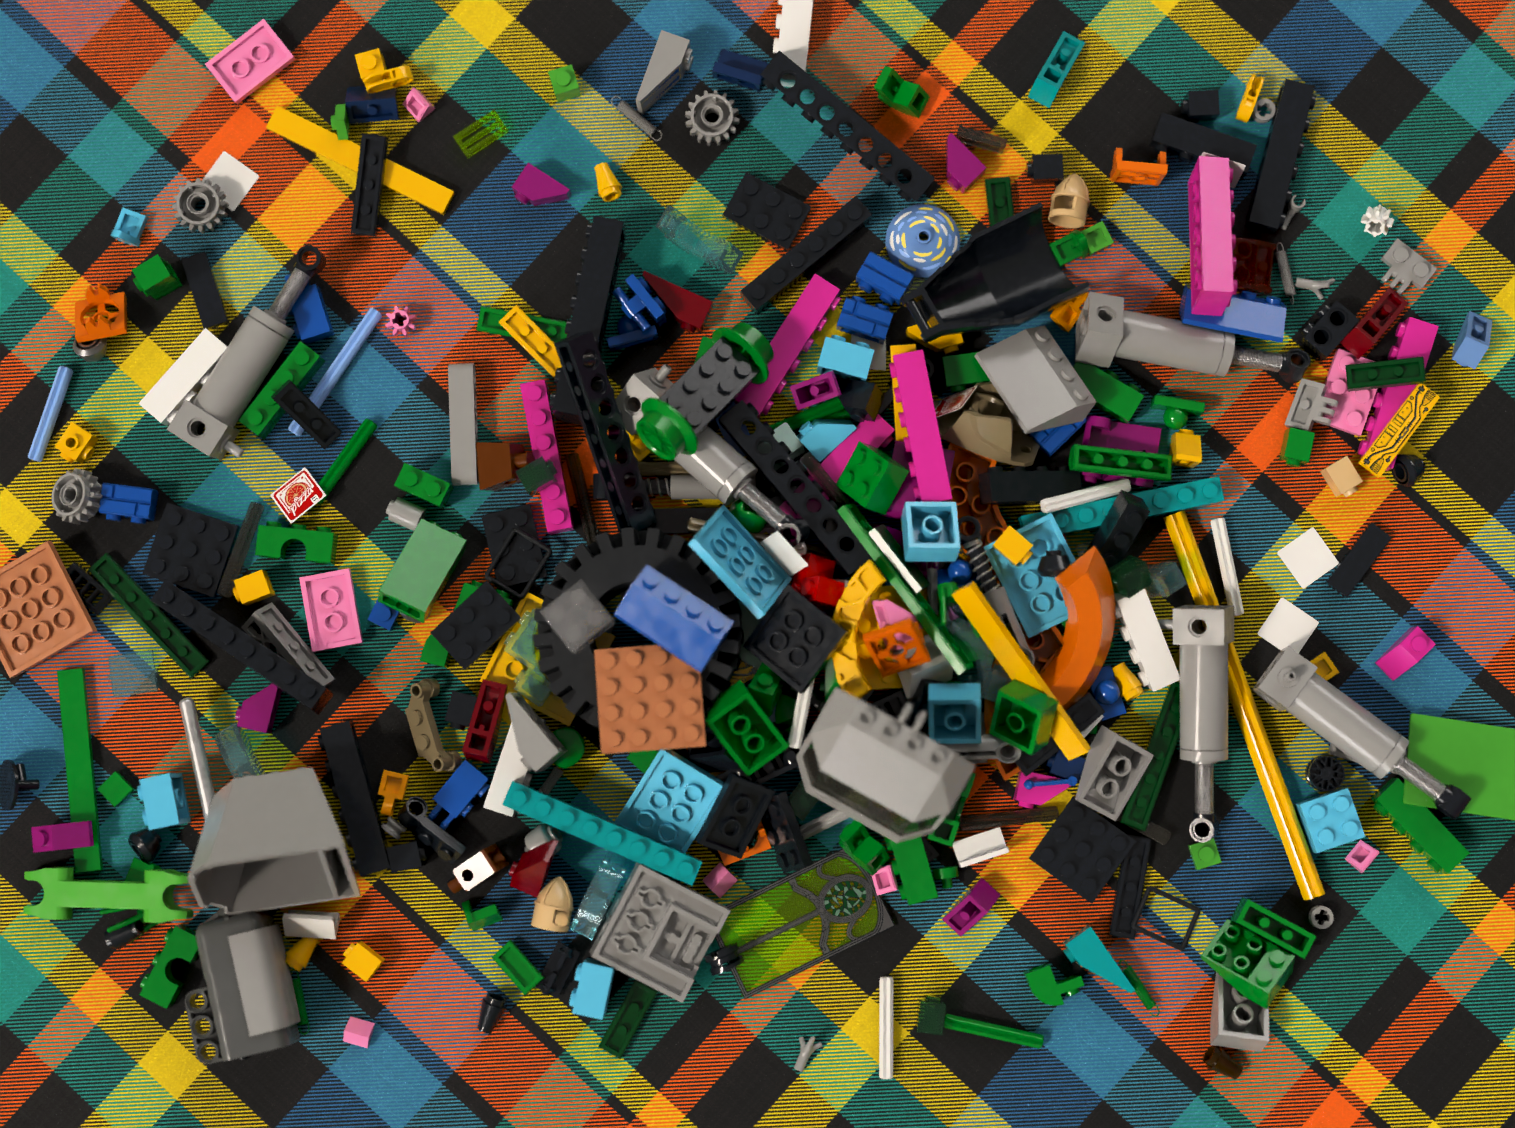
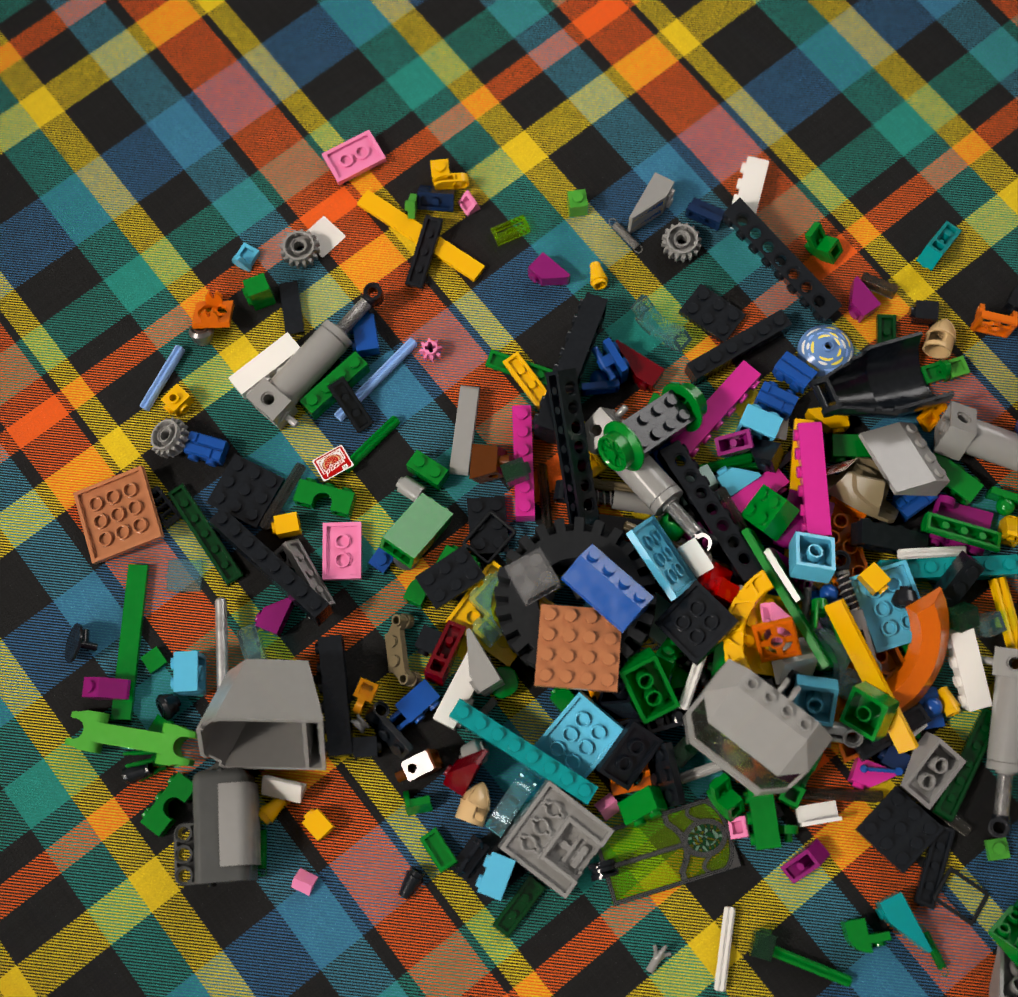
camera: 10 degrees right, 10 degrees down
(761, 875) = (642, 806): none -> green brick

